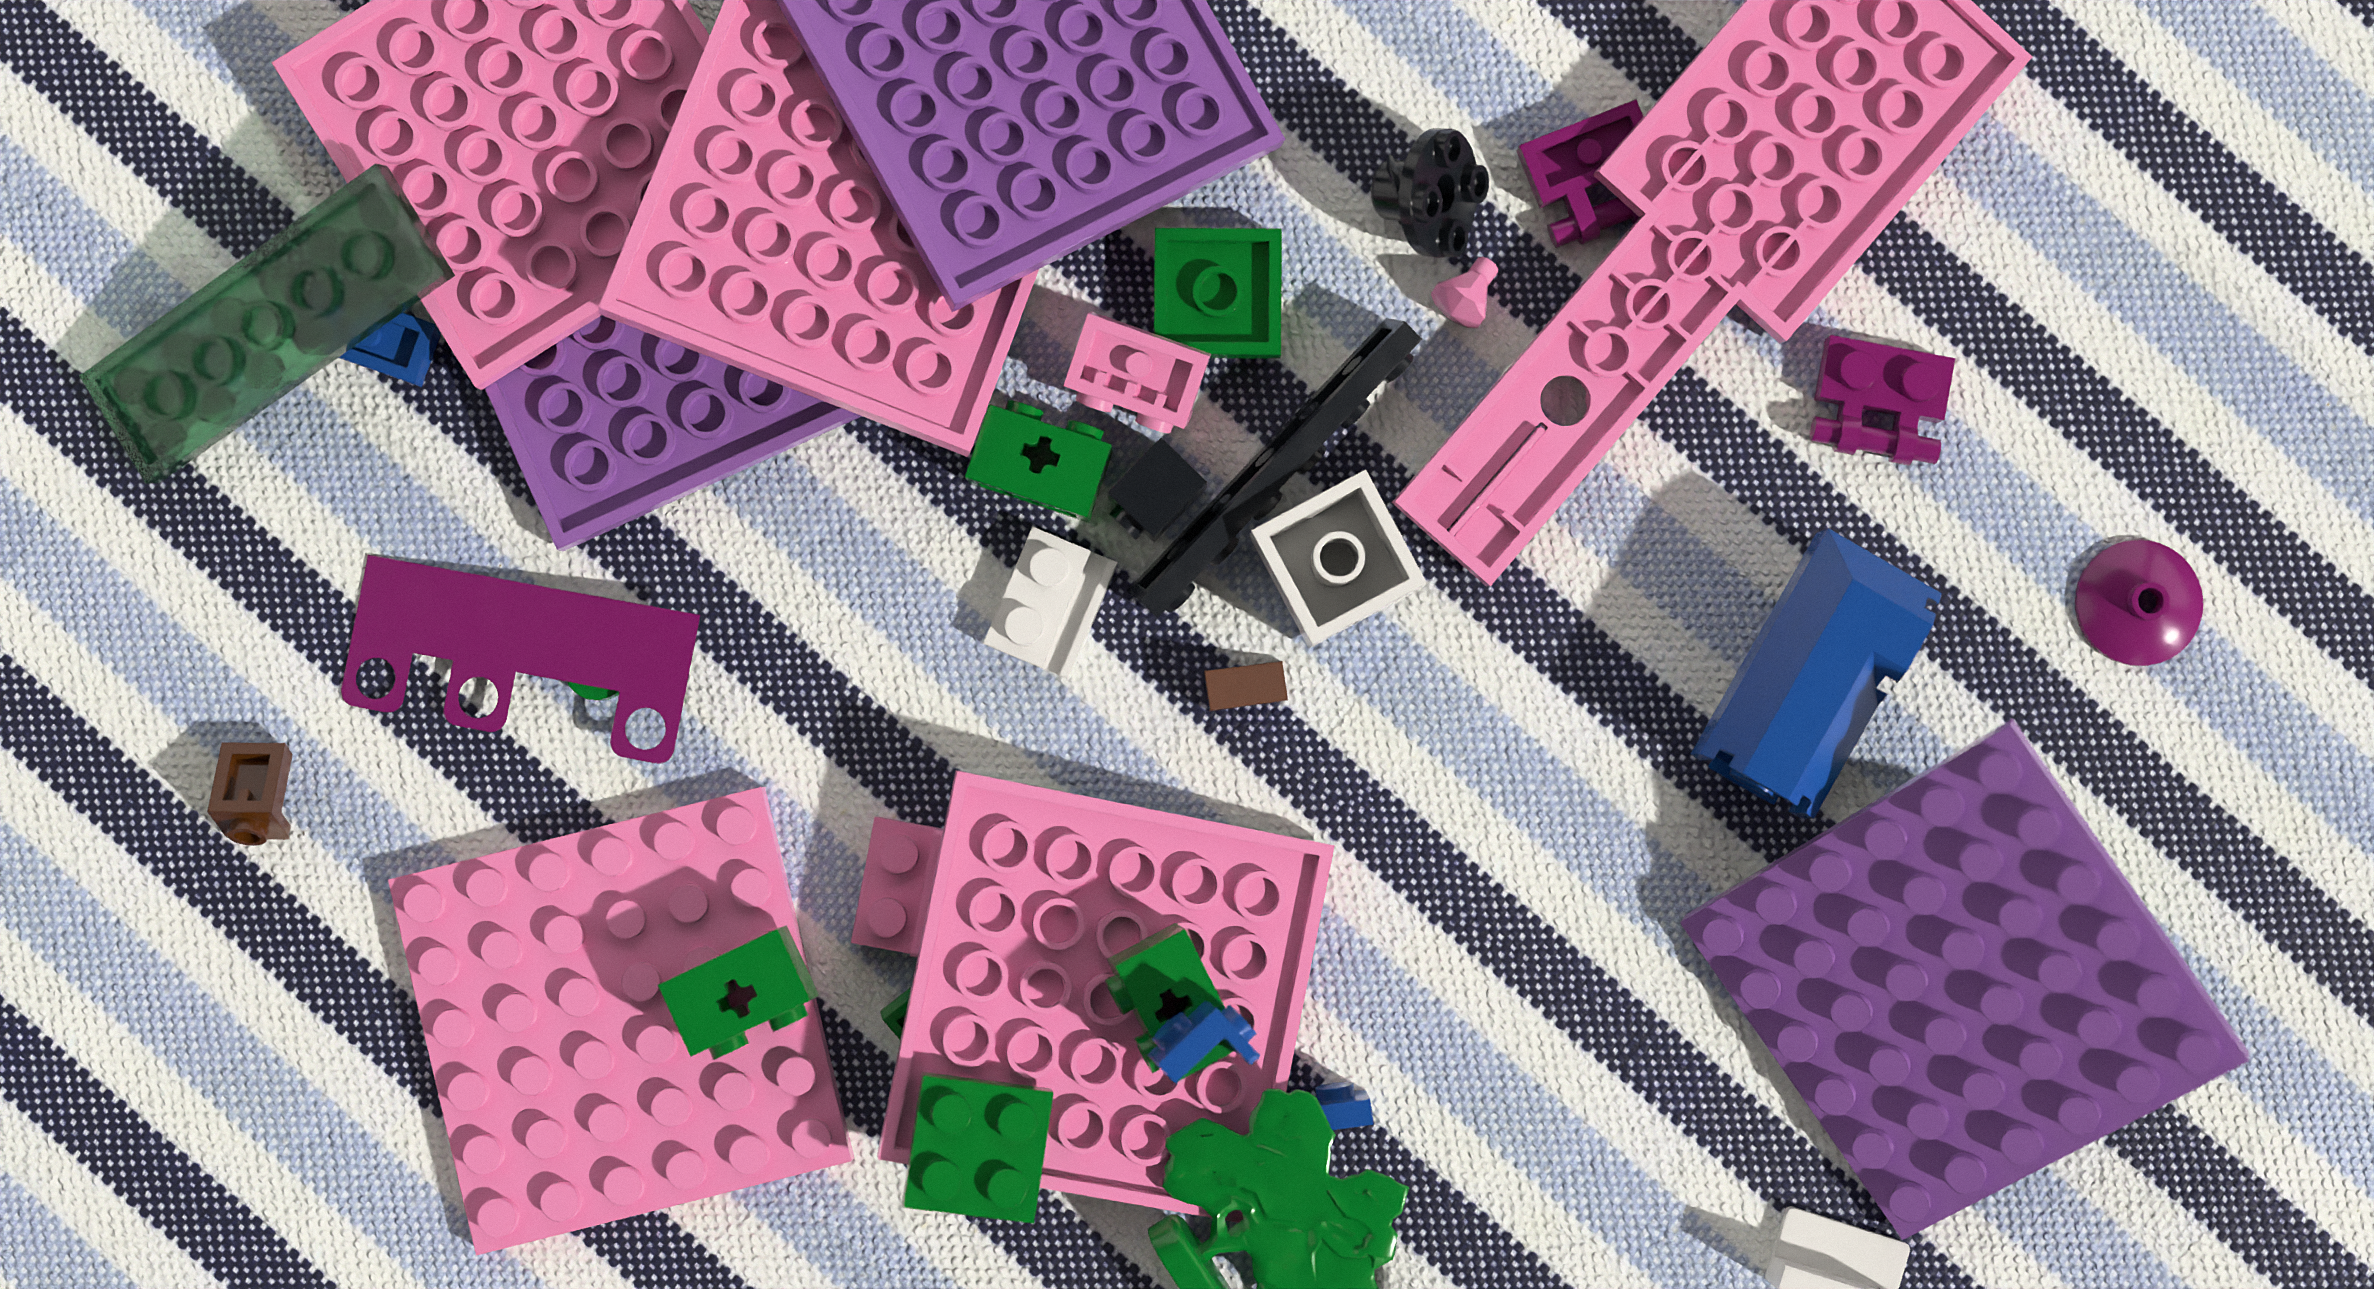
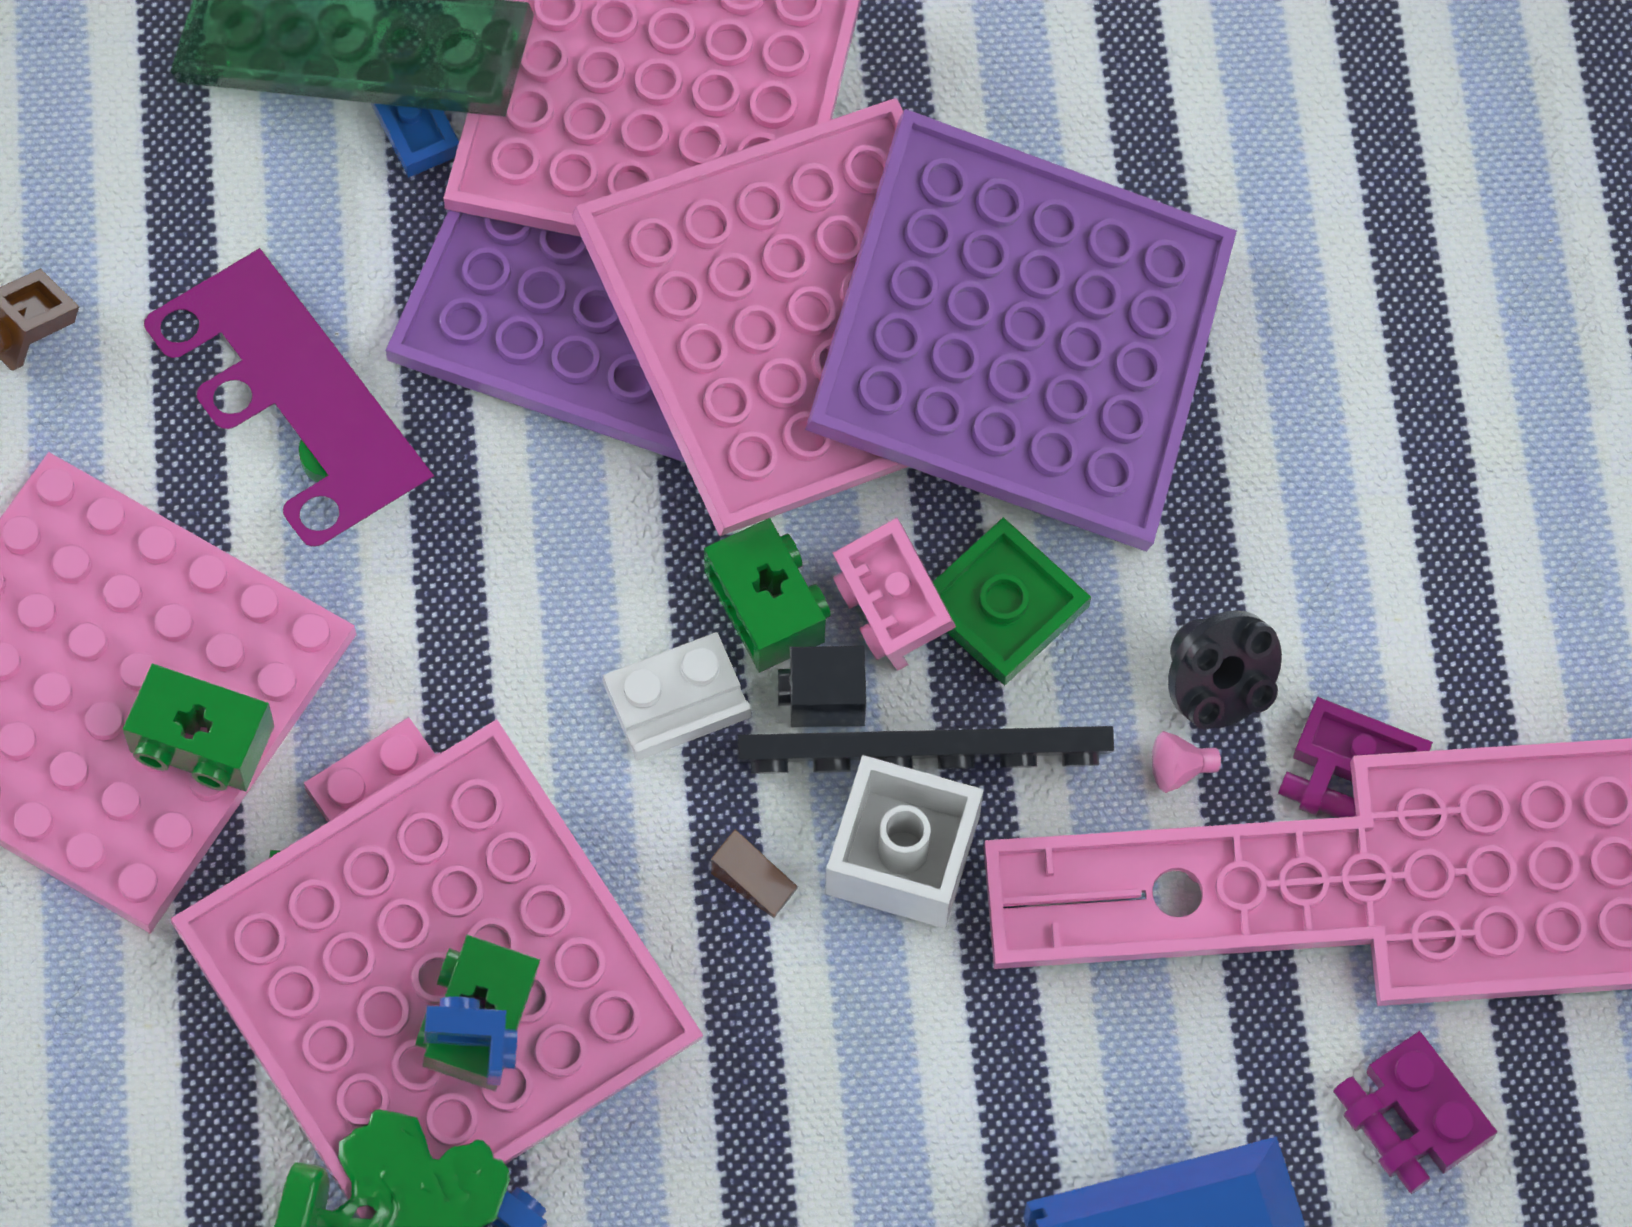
camera: 45 degrees right, 20 degrees down
(977, 1147) = (244, 976): green plate -> none

